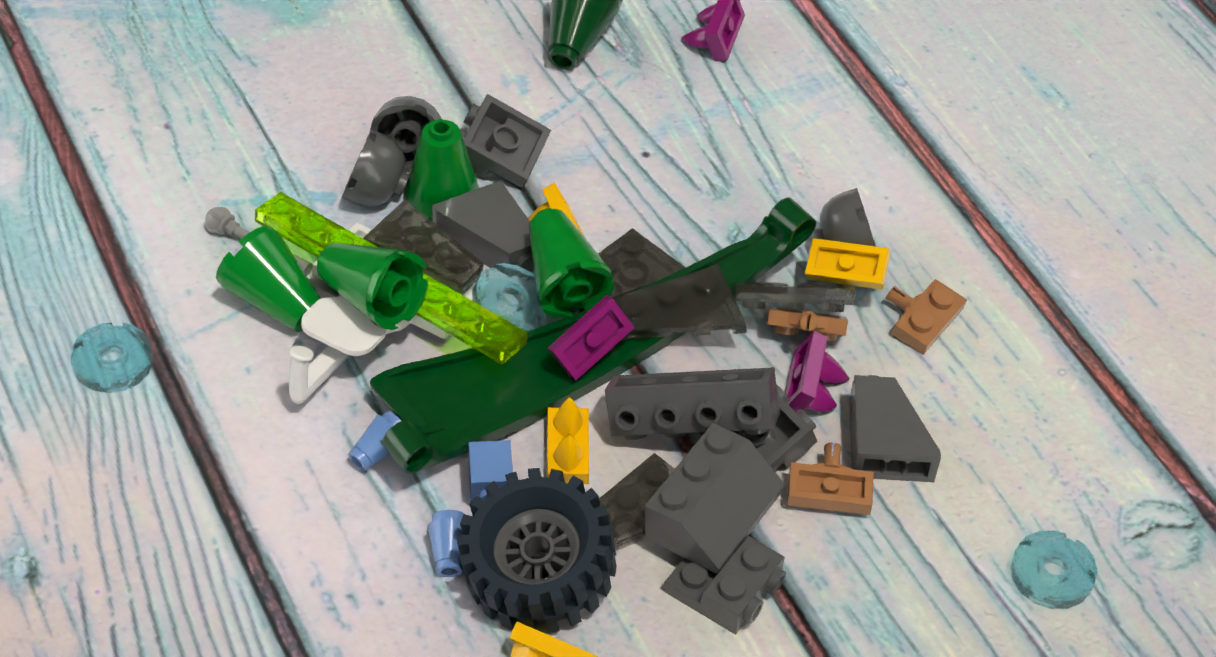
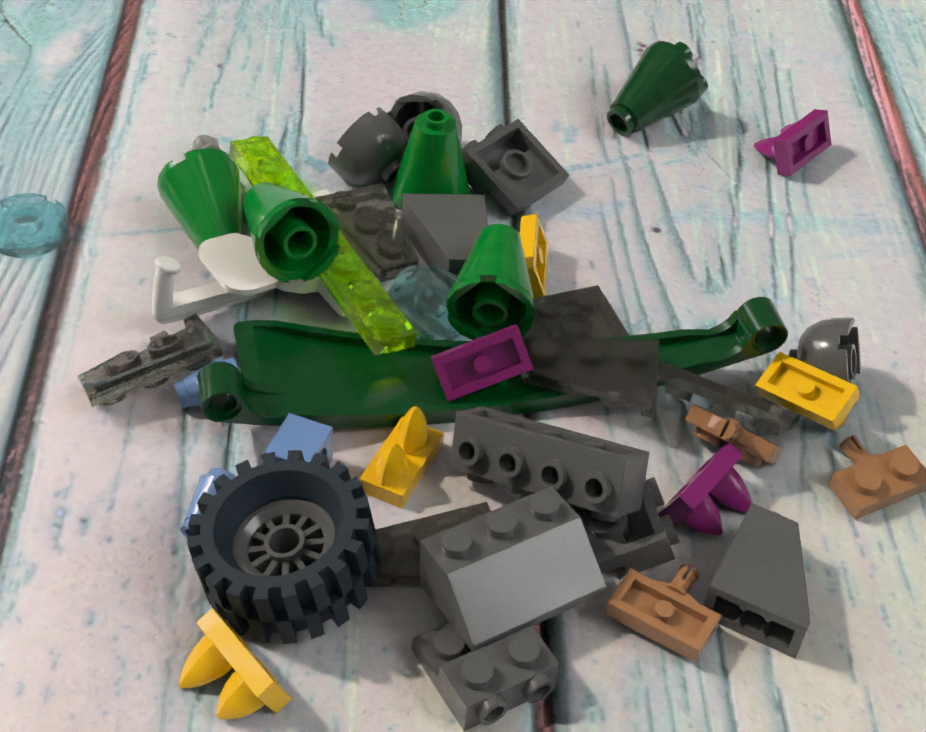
camera: 25 degrees right, 5 degrees down
(321, 441) = (152, 367): none -> clear smoke wing

